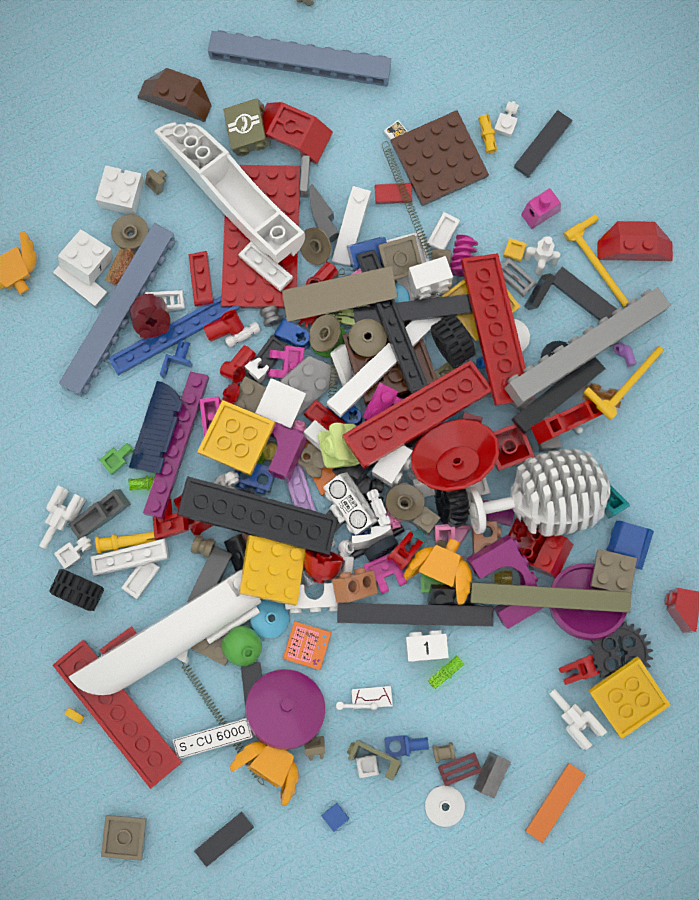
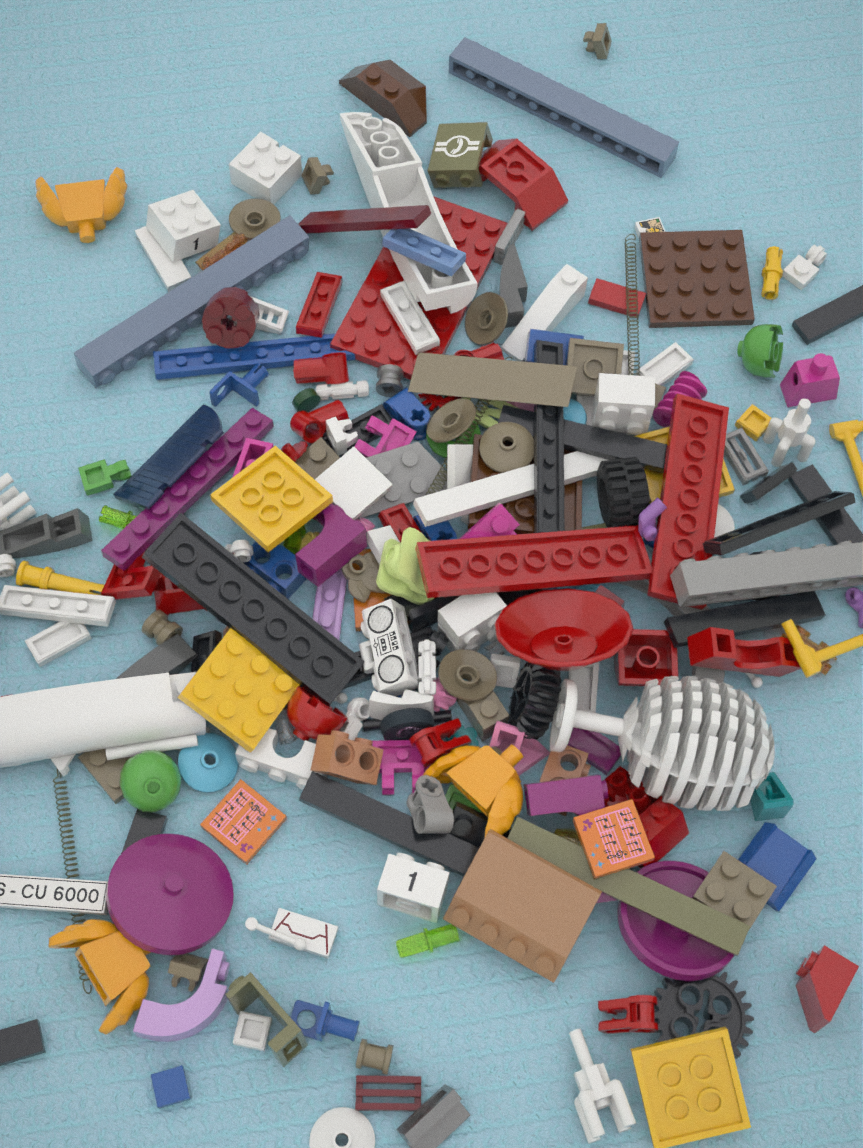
camera: 15 degrees right, 15 degrees down
(207, 210) = (365, 219): none -> dark red tile
(223, 352) = (306, 400): none -> dark green tile
(259, 221) = (425, 250): none -> medium blue plate
(319, 782) = (187, 1018): none -> lavender arch
(416, 596) = (430, 807): none -> light grey piece
(476, 354) = (648, 517): none -> medium lavender arm
(495, 633) = (522, 905): none -> medium nougat slope
(502, 197) = (762, 350): none -> bright green cylinder
(533, 574) = (613, 839): none -> orange tile
(557, 322) = (778, 522): none -> black tile

